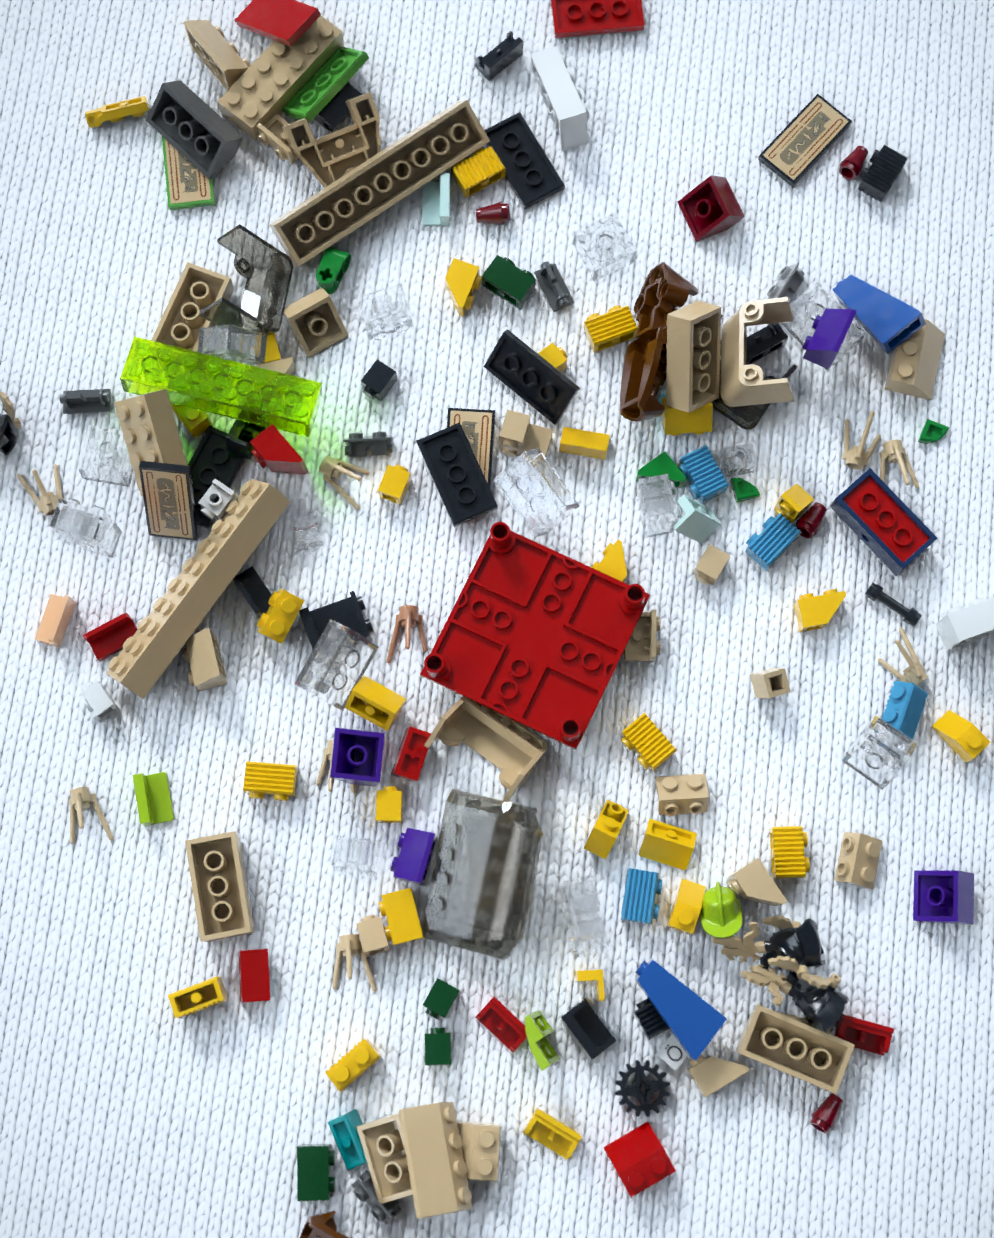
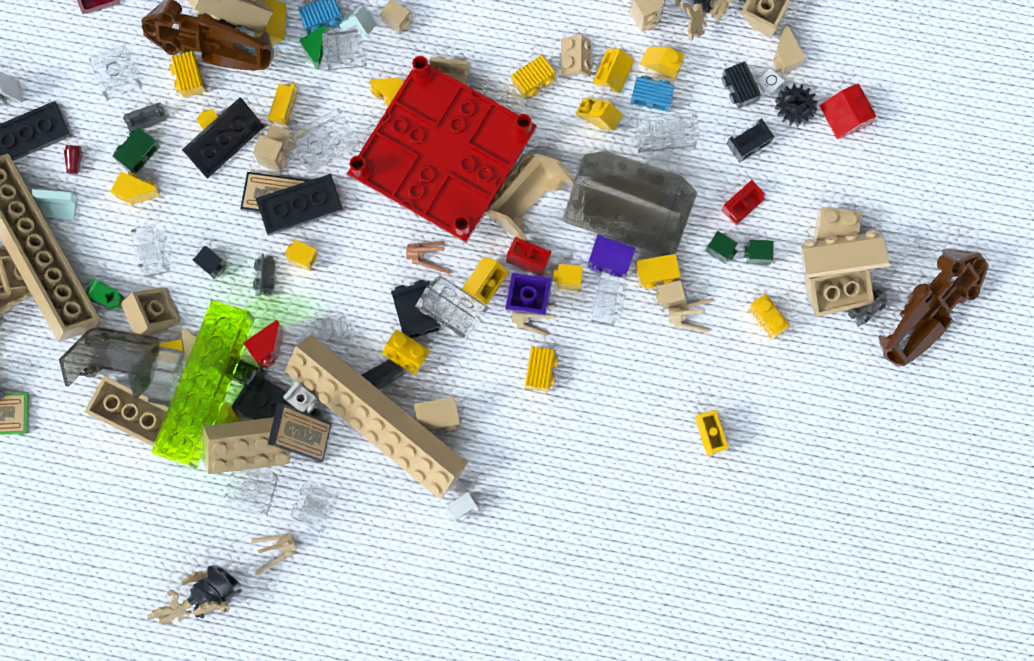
camera: 85 degrees left, 0 degrees up
(55, 620) = (389, 543): light nougat panel -> none
(80, 801) = (545, 524): tan plant -> none
(86, 401) = (196, 511): dark grey hinge -> none
(110, 636) = (409, 494): red panel -> none
(153, 798) = (547, 466): lime panel -> none
(219, 886) = (625, 412): tan brick -> none
(254, 975) = (696, 391): red hinge -> none
(314, 1172) = (848, 351): dark green brick -> none
(334, 468) = (281, 304): tan plant -> none
(347, 1138) = (824, 325): teal slope -> none
(478, 171) = (32, 168): yellow brick -> none
(537, 1030) = (756, 172): lime slope -> none
(552, 1133) = (826, 173): yellow hinge -> none
(593, 975) = (717, 127): yellow panel -> none
(682, 1010) = (742, 66): blue slope -> none
(721, 912) = (670, 33): lime piece -> none

